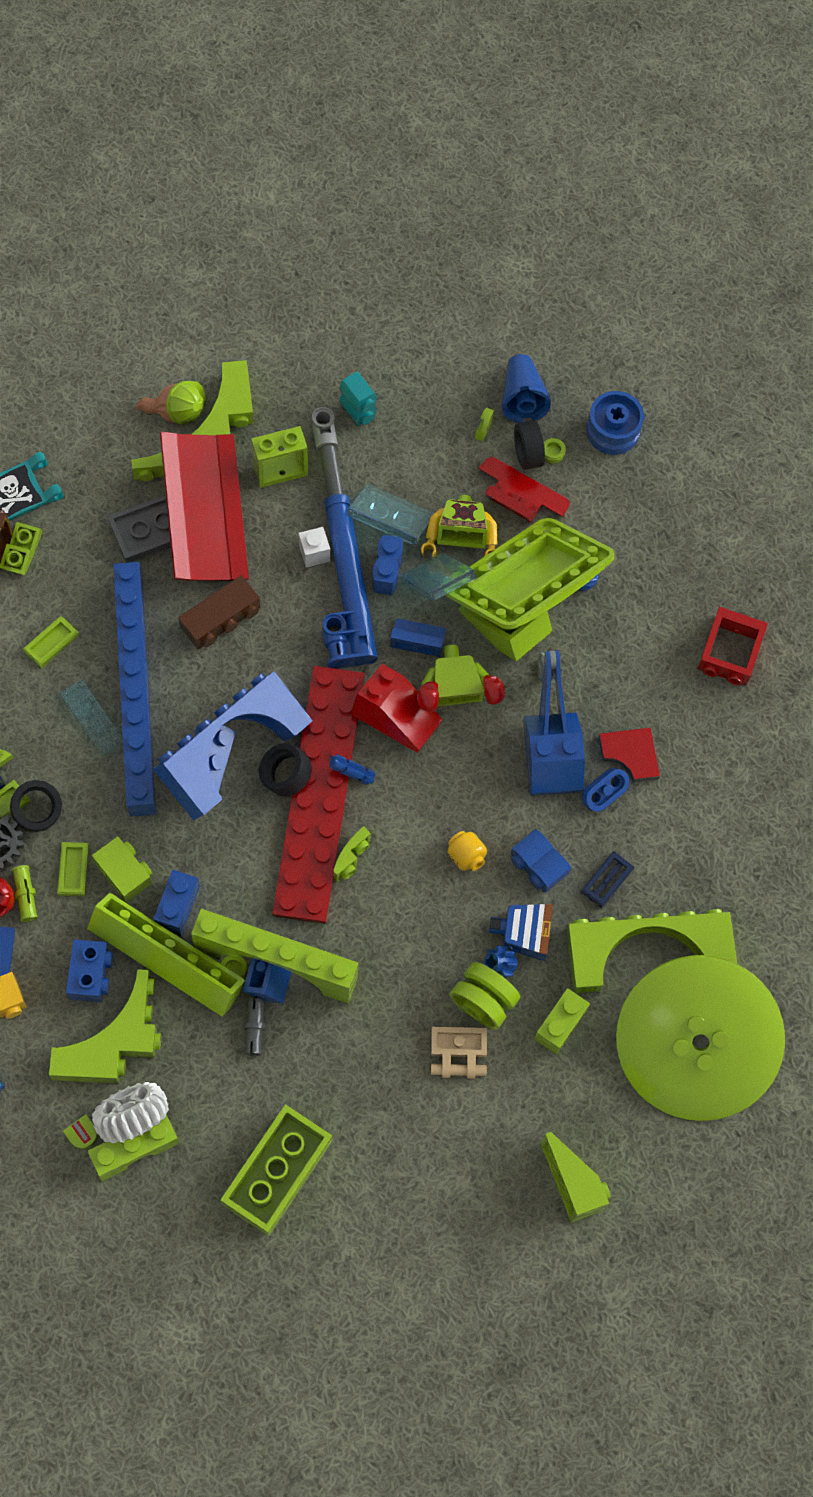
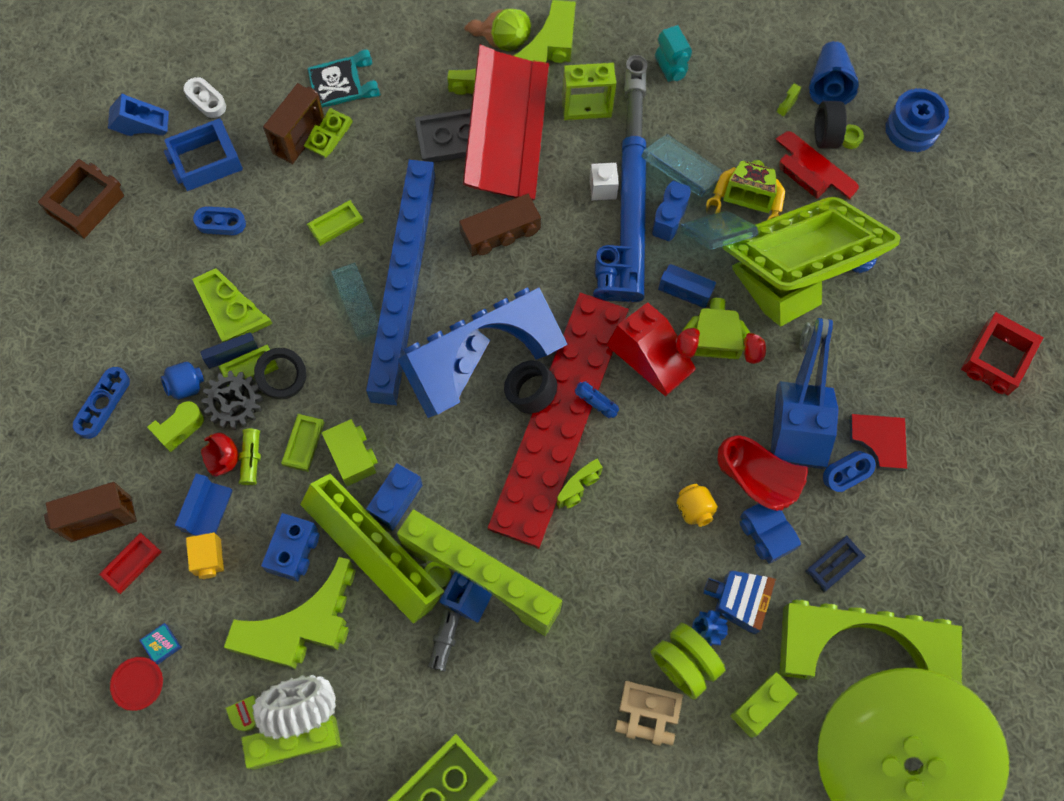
camera: 15 degrees right, 0 degrees up
(521, 808) = (761, 473): none -> red hair

